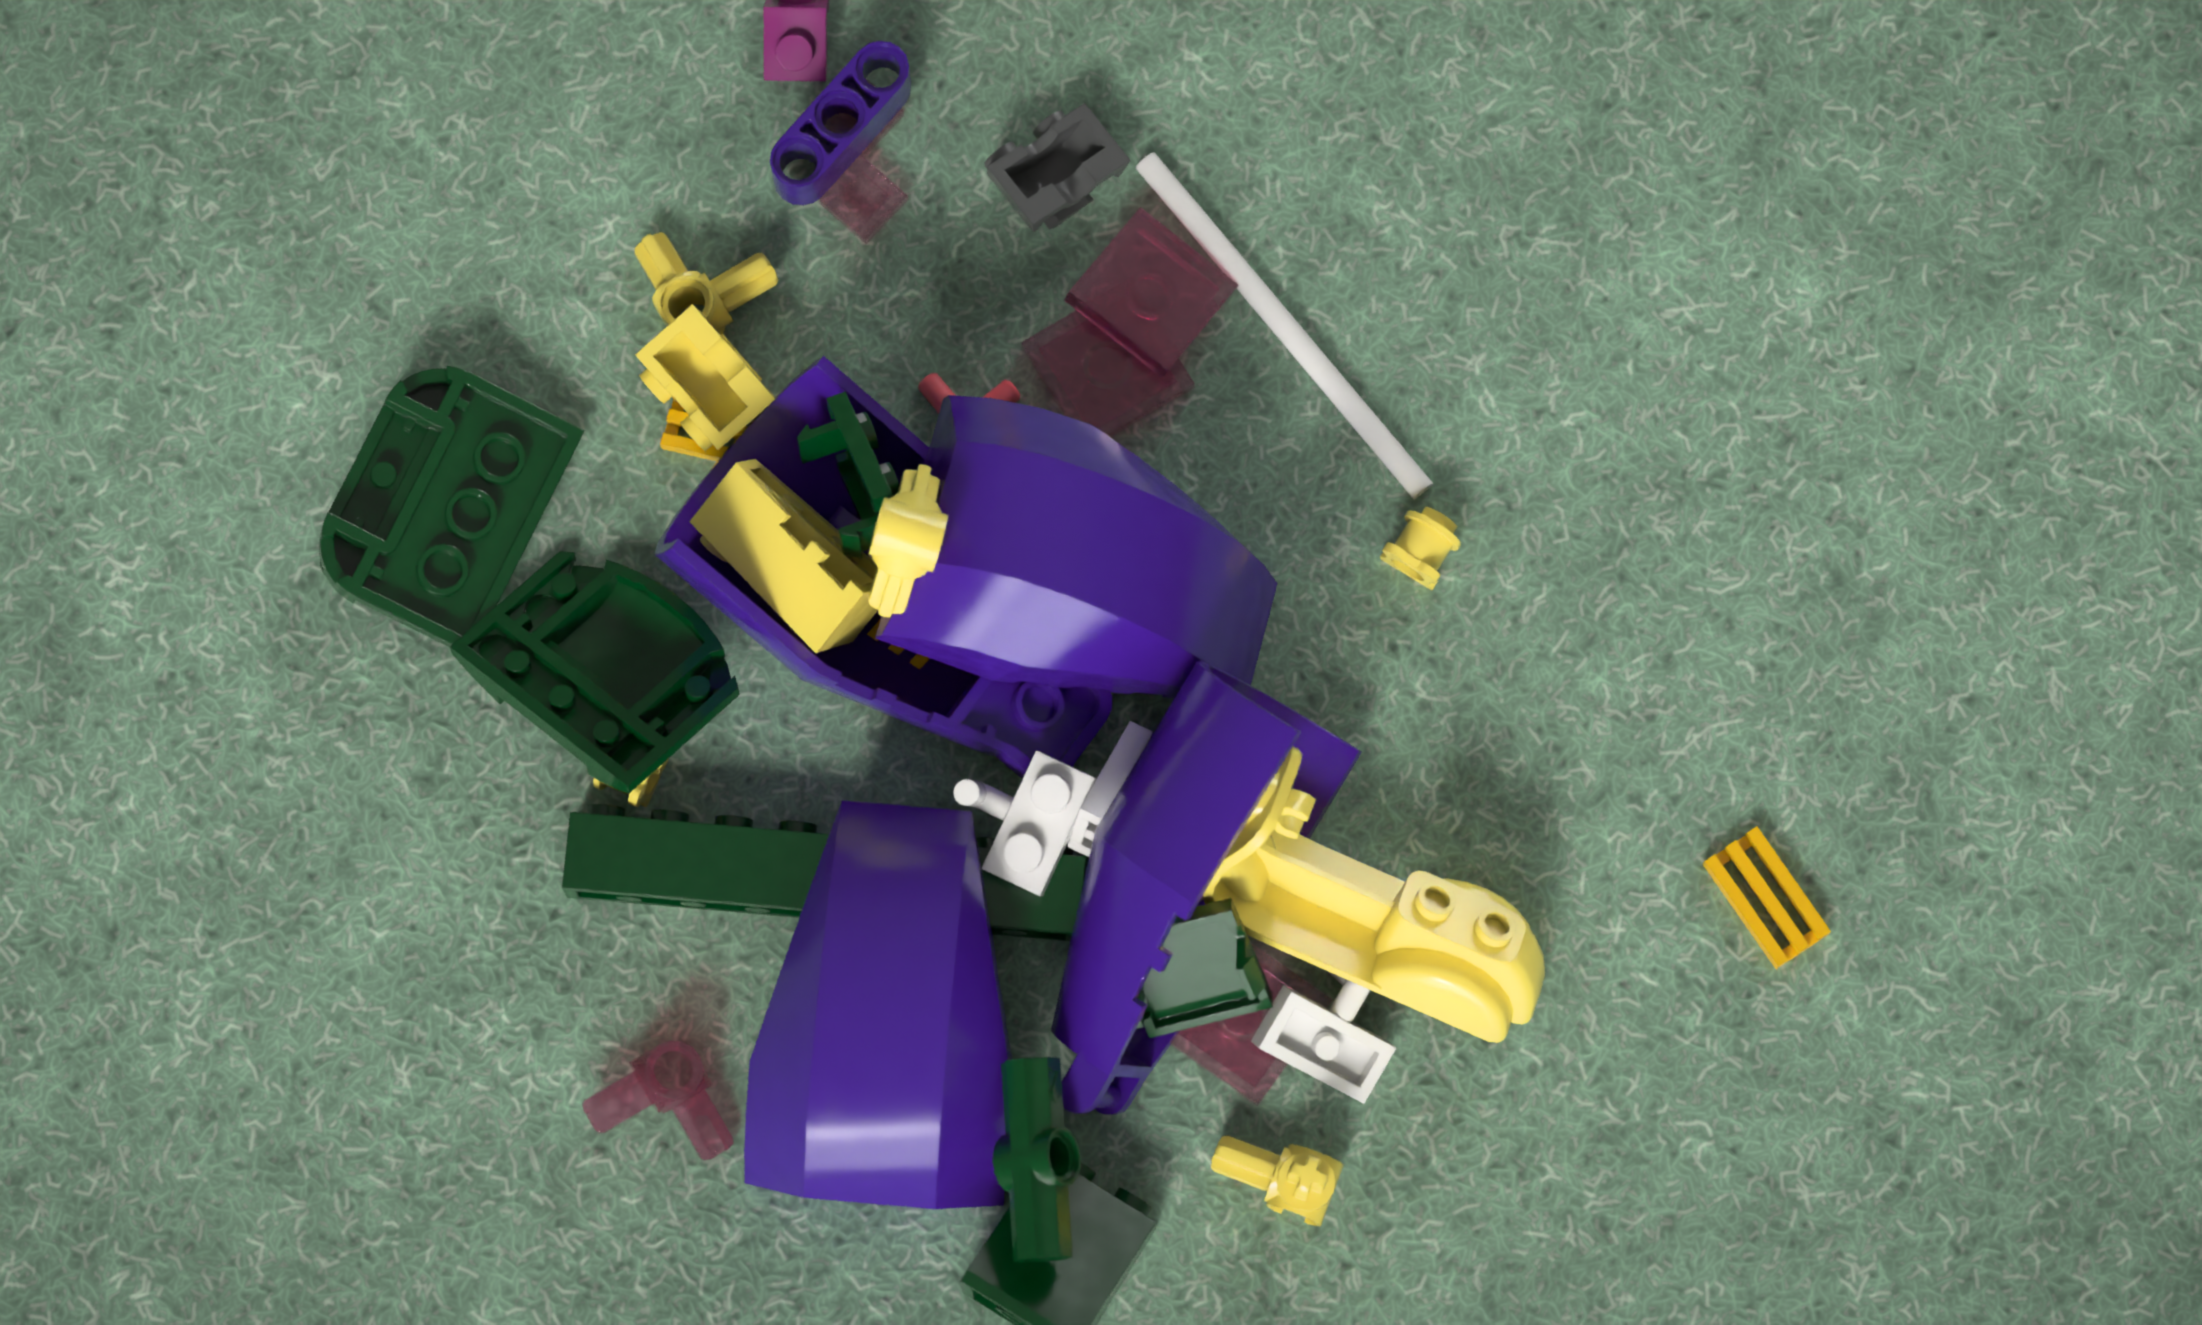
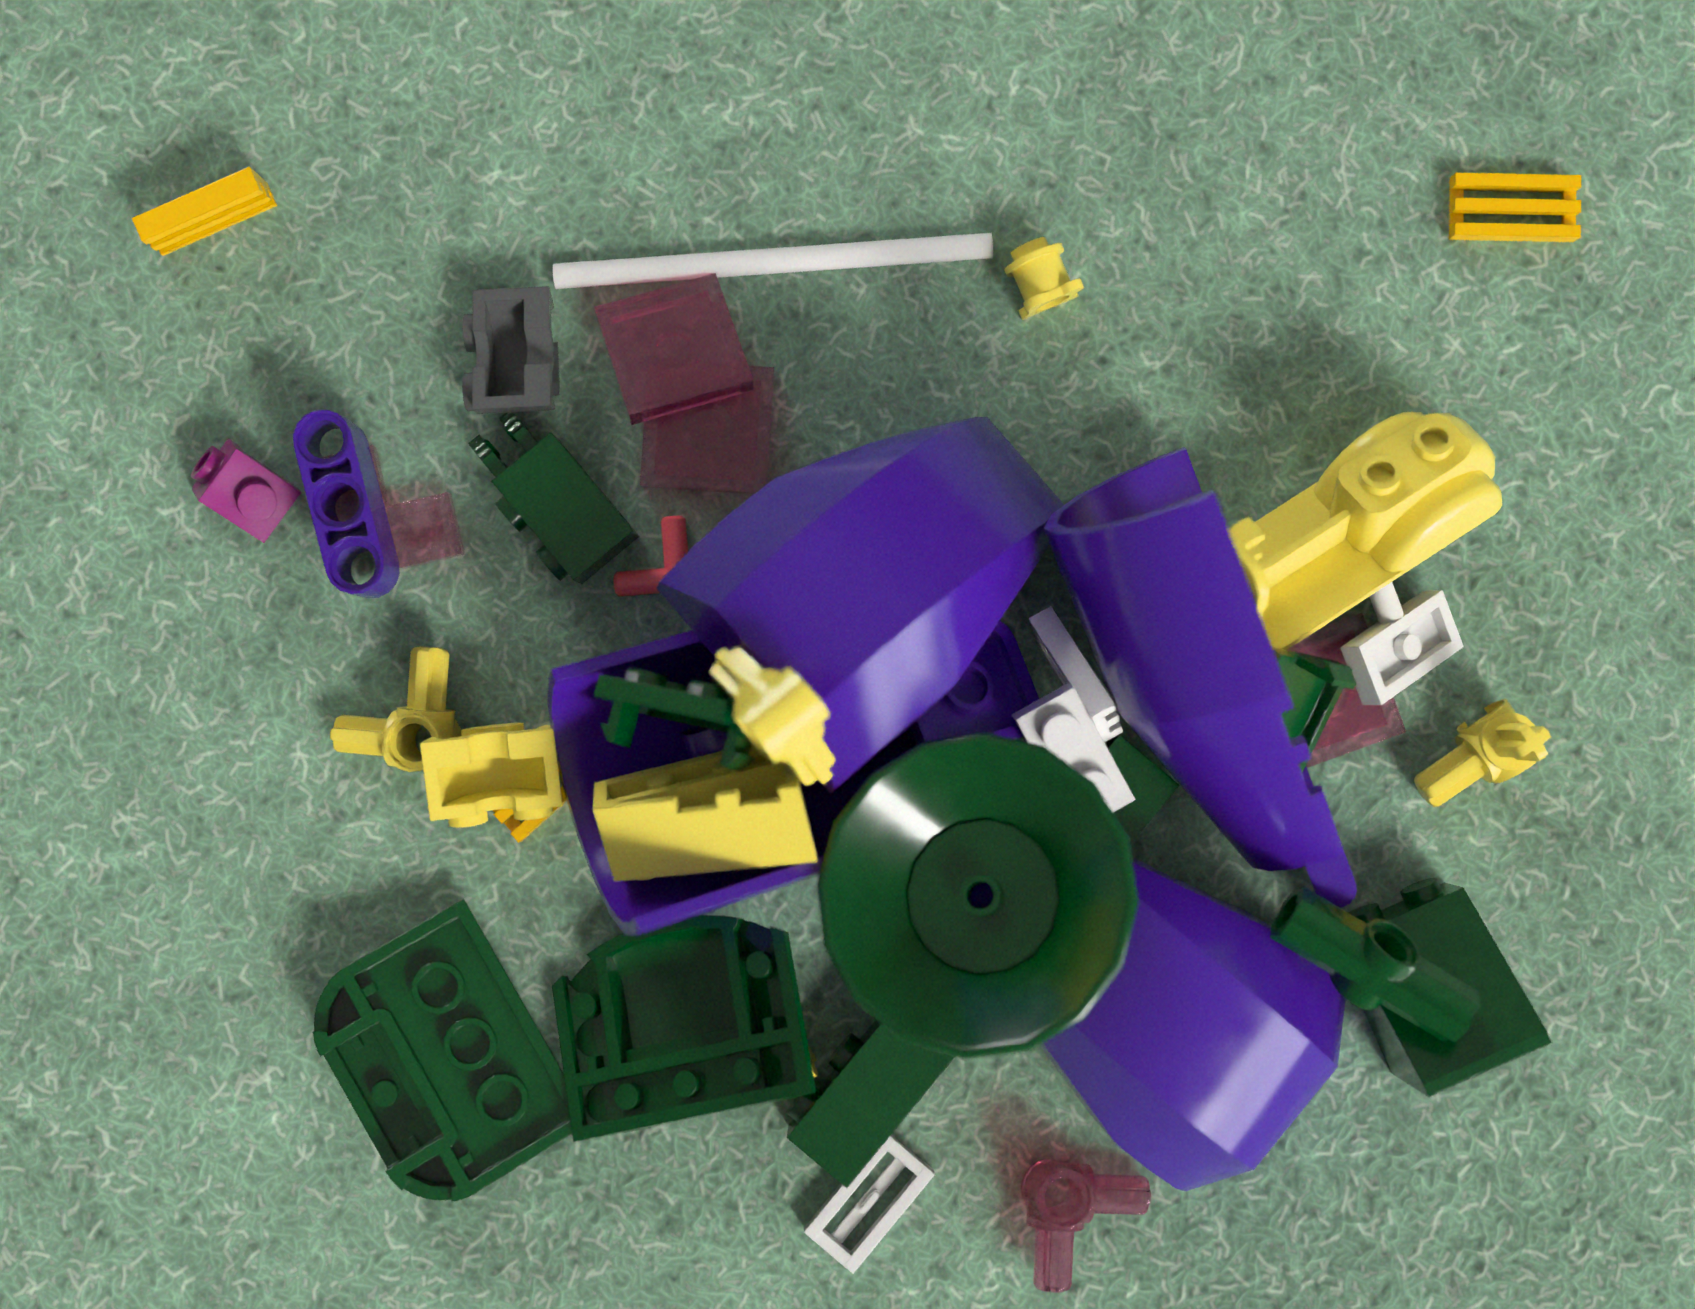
camera: 55 degrees left, 10 degrees up
(503, 924) = (833, 1242): none -> white tile
(865, 732) = (904, 879): none -> dark green dish
(959, 286) = (557, 503): none -> dark green hinge

